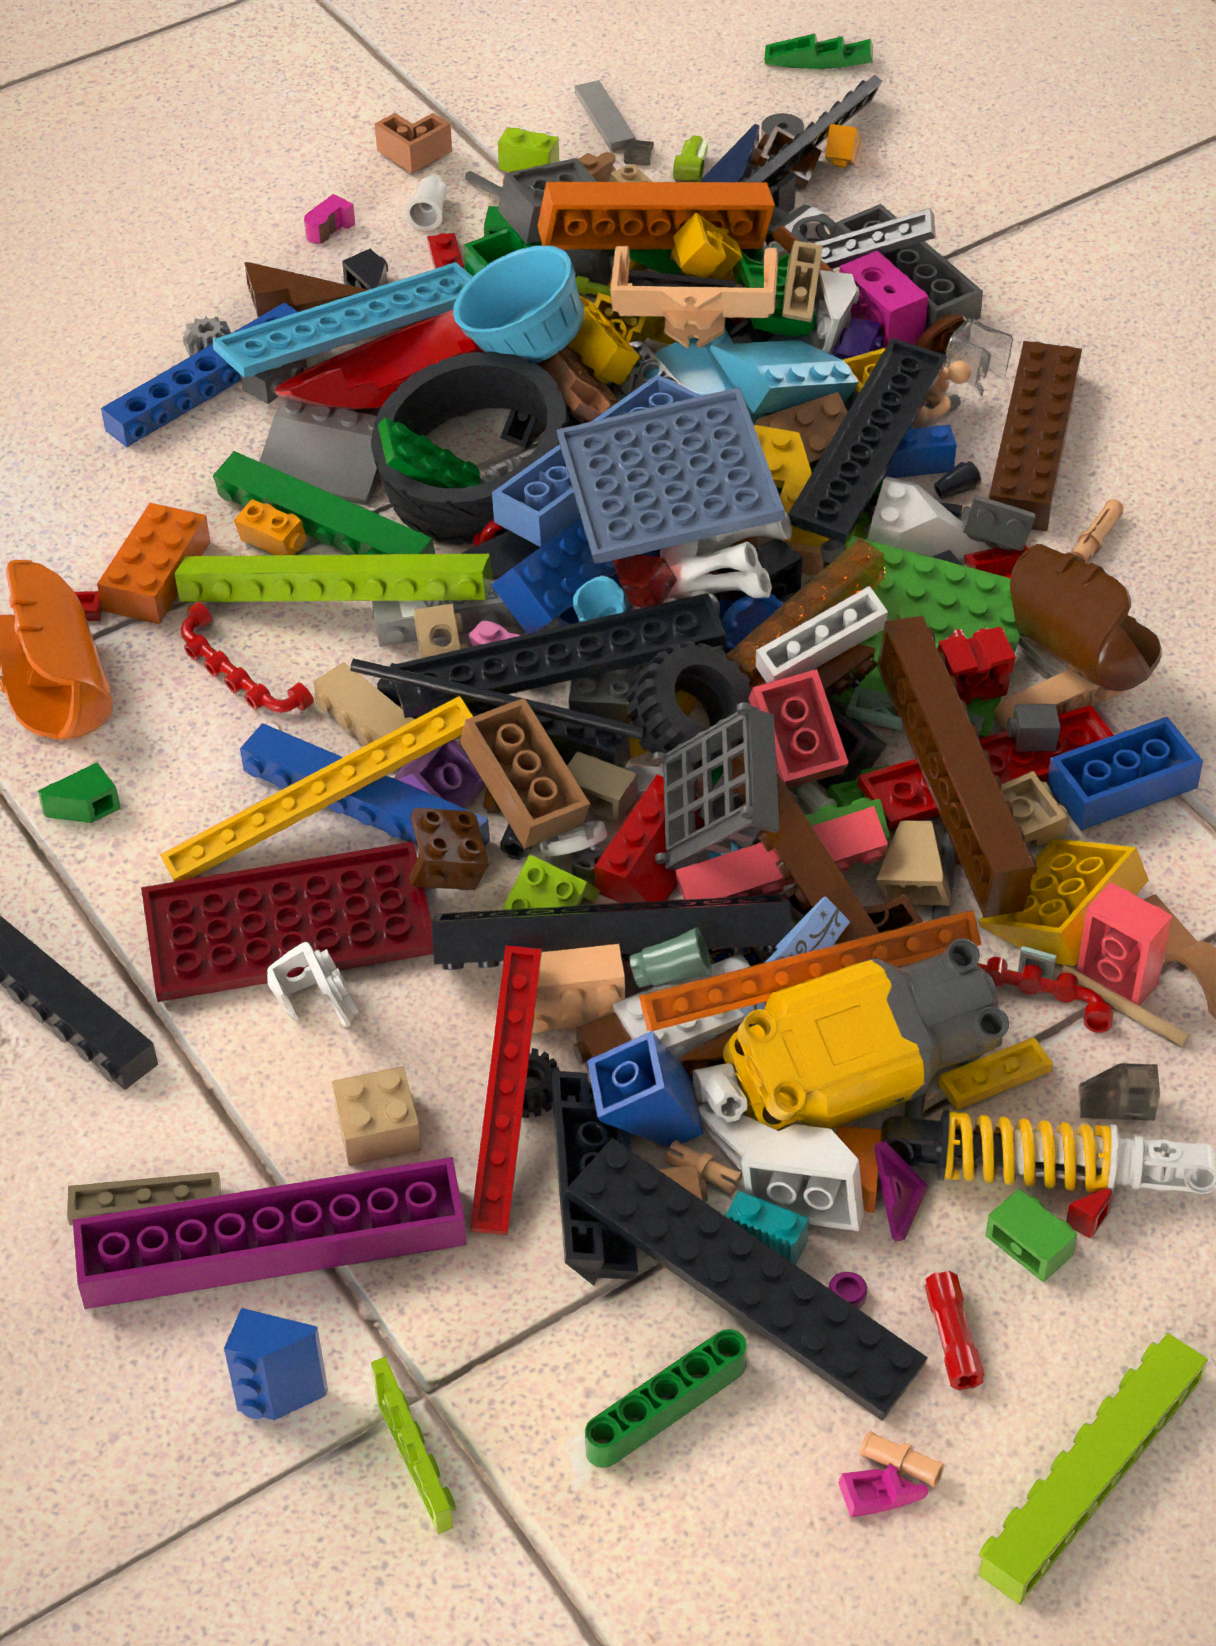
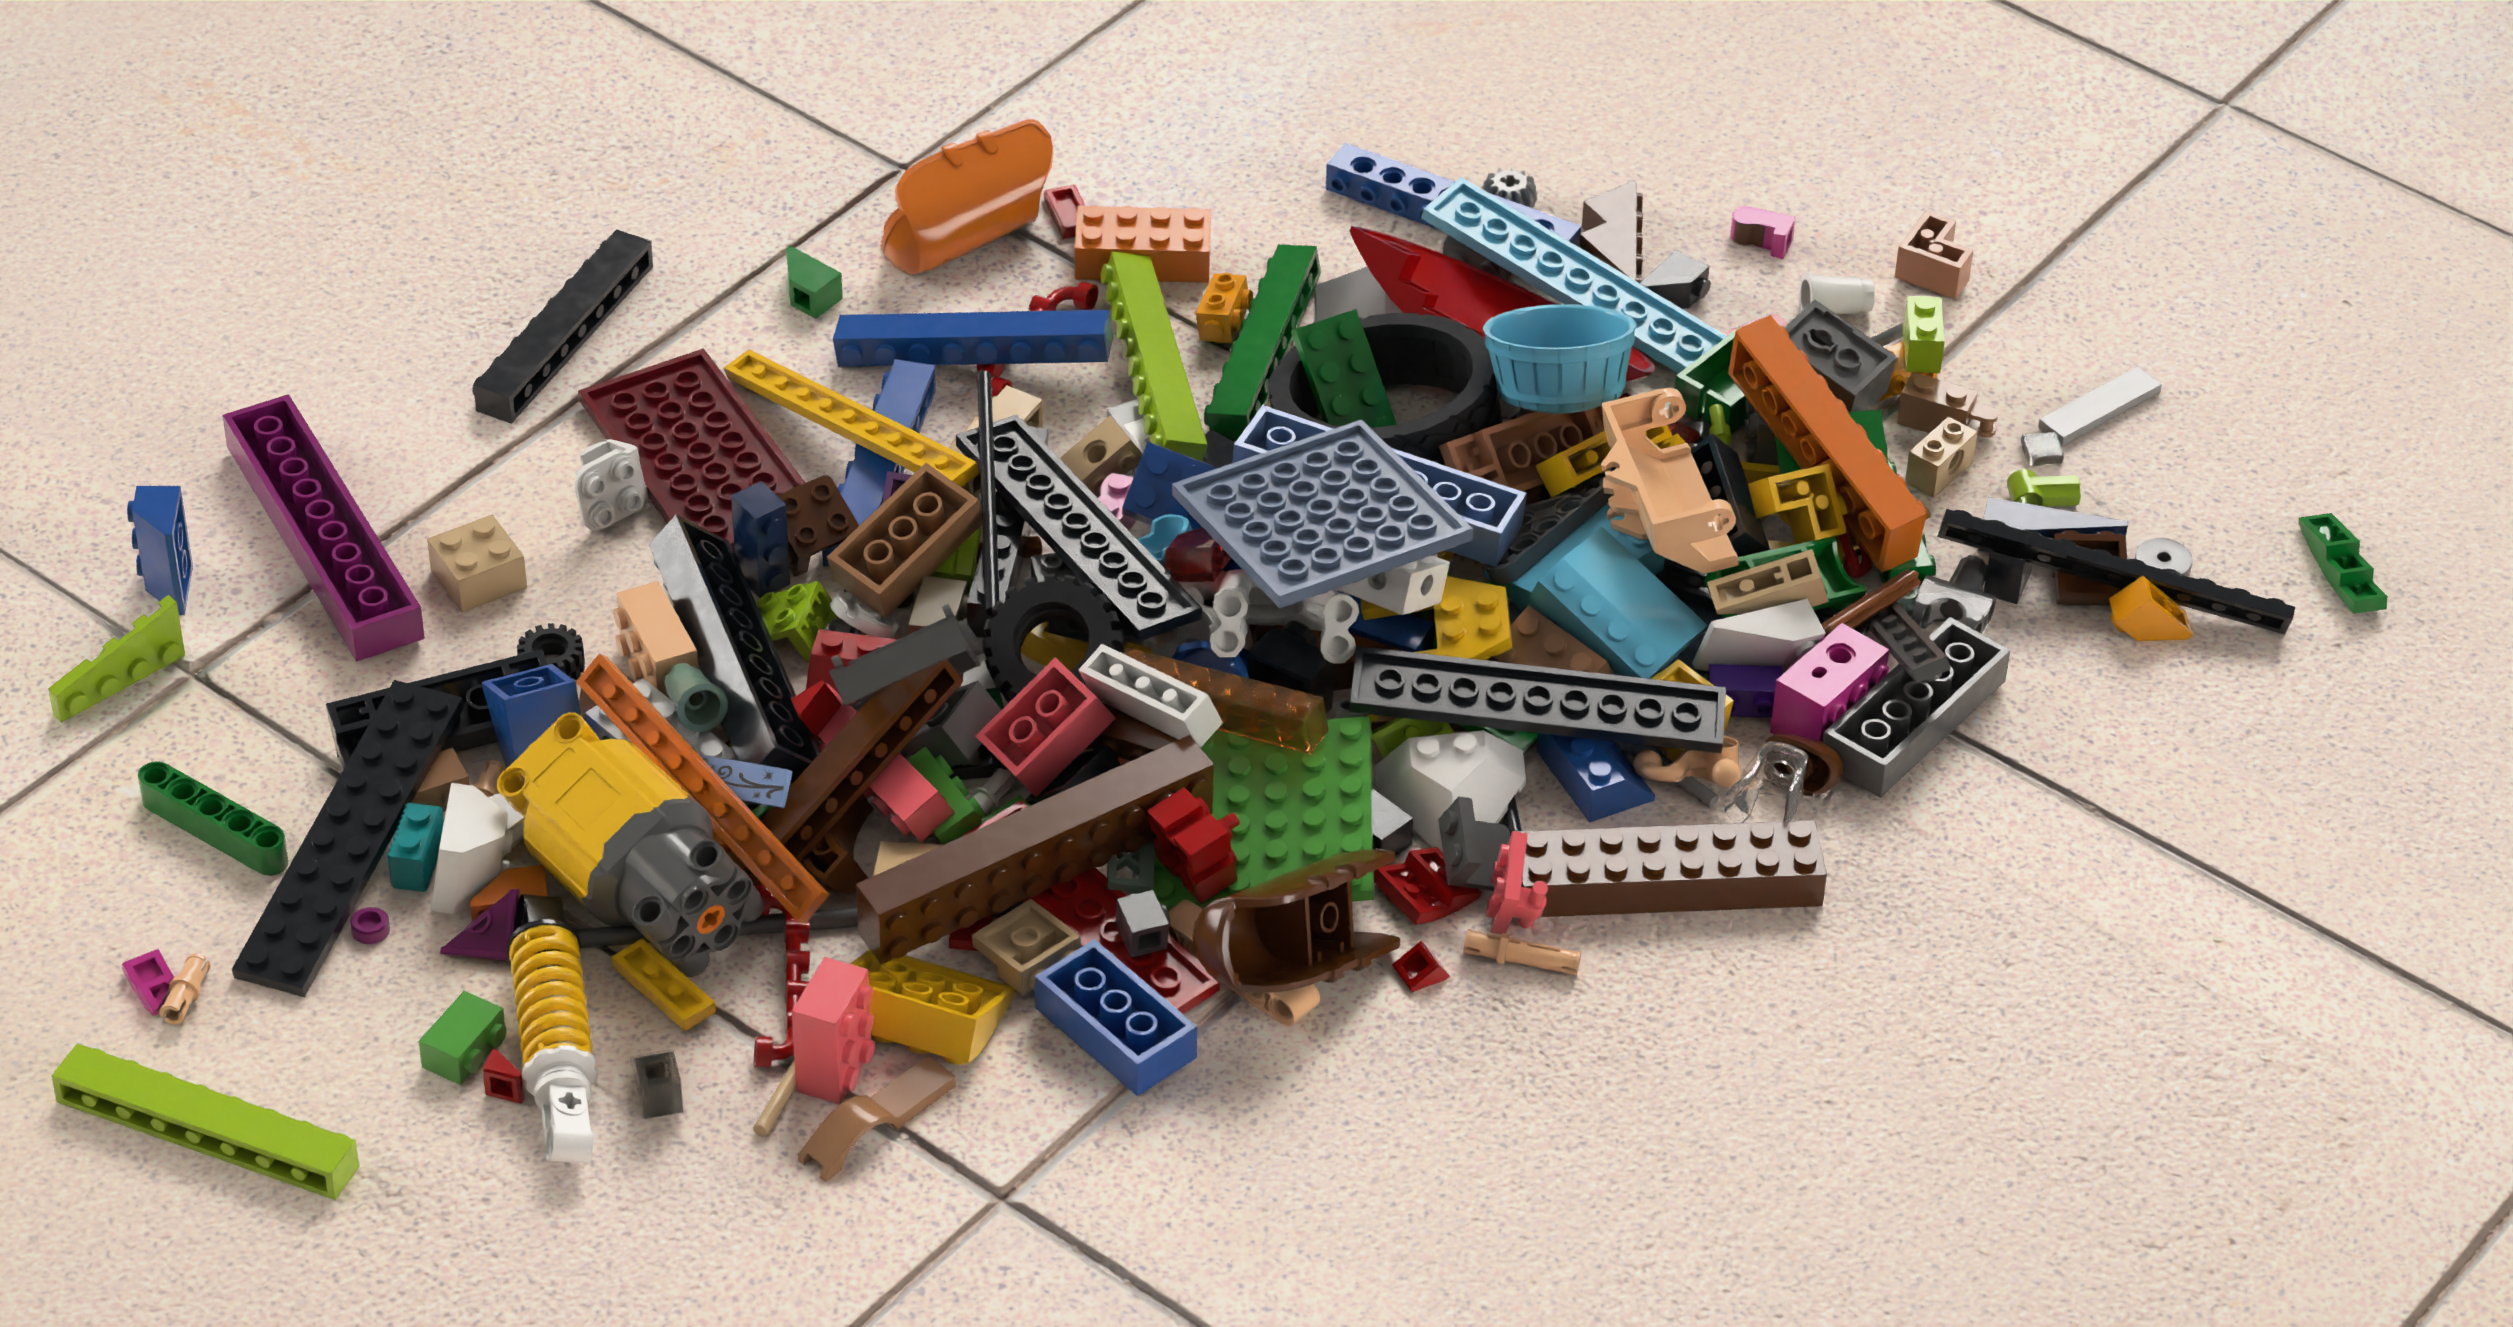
camera: 70 degrees right, 5 degrees down
(126, 1195) = (348, 447): dark tan plate -> none
(238, 692) = (974, 338): none -> blue brick
(468, 872) = (761, 538): none -> dark blue brick
(506, 1091) = (509, 621): red plate -> none
(716, 881) = (816, 706): none -> red slope
(958, 480) = (1557, 816): black cone -> none
(960, 1353) = (310, 1009): red axle -> none
(1054, 507) = (1509, 897): none -> coral plate

